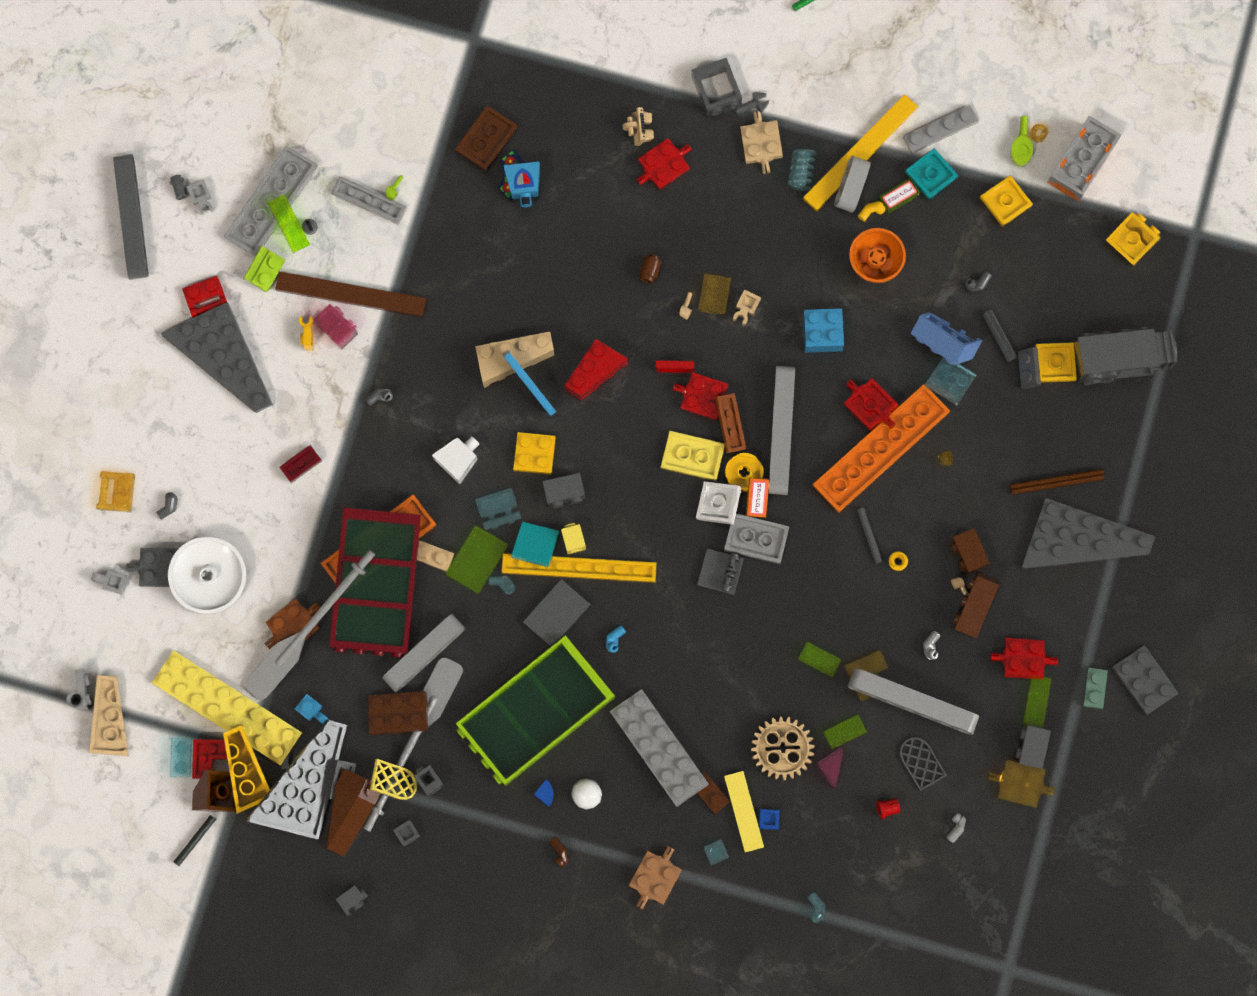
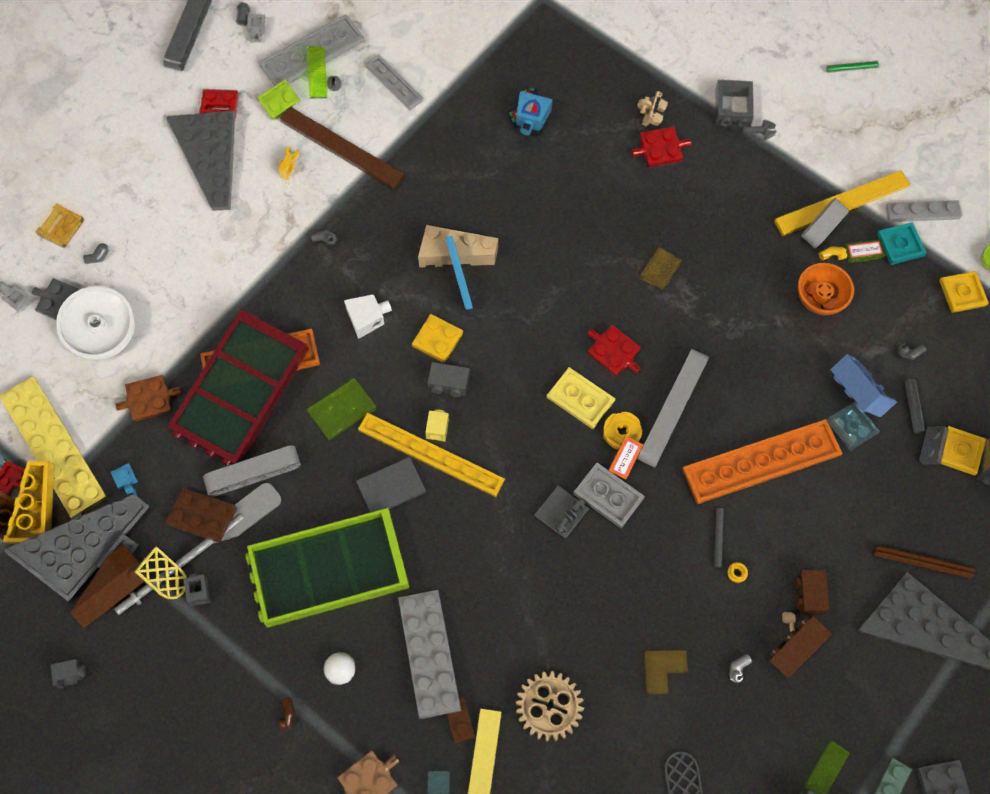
camera: 20 degrees right, 10 degrees down
(287, 652) = (131, 416): light grey piece -> none
(300, 464) = (227, 265): dark red plate -> none
(336, 326) = (315, 166): clear pink brick -> none
(391, 193) = (415, 81): lime hand -> none
(406, 833) = (152, 631): dark grey plate -> none
(434, 556) = (304, 390): tan plate -> none
(486, 138) = (516, 70): reddish brown plate -> none
(497, 503) = (382, 367): clear light blue plate -> none
(504, 582) = (355, 437): clear light blue arm -> none
(535, 544) = (400, 416): teal tile -> none
(545, 793) = (301, 650): blue tile -> none
(594, 369) = (523, 287): red wedge -> none
(612, 639) = (432, 531): dark azure arm -> none
(650, 269) = (611, 224): reddish brown brick -> none
(675, 366) = (597, 313): red tile -> none
(685, 311) = (627, 271): tan hand -> none
(718, 503) = (586, 447): white plate -> none
(730, 423) = (628, 381): dark orange plate -> none
(747, 305) = (686, 287): tan plate -> none
(761, 142) = (755, 161): tan plate -> none
(769, 819) = (506, 772): blue tile -> none
(800, 168) = (783, 194): clear light blue piece -> none
(819, 659) = (622, 634): clear neon green plate -> none
(823, 330) = (748, 335): dark azure brick -> none
(830, 767) = (589, 745): clear pink slope -> none
(845, 732) = (618, 717): clear neon green tile -> none
(870, 404) = (767, 417): red plate -> none
(913, 701) = (700, 715): light grey beam -> none
(946, 458) = (822, 495): clear yellow hinge -> none
(1024, 658) = (829, 720): red plate -> none

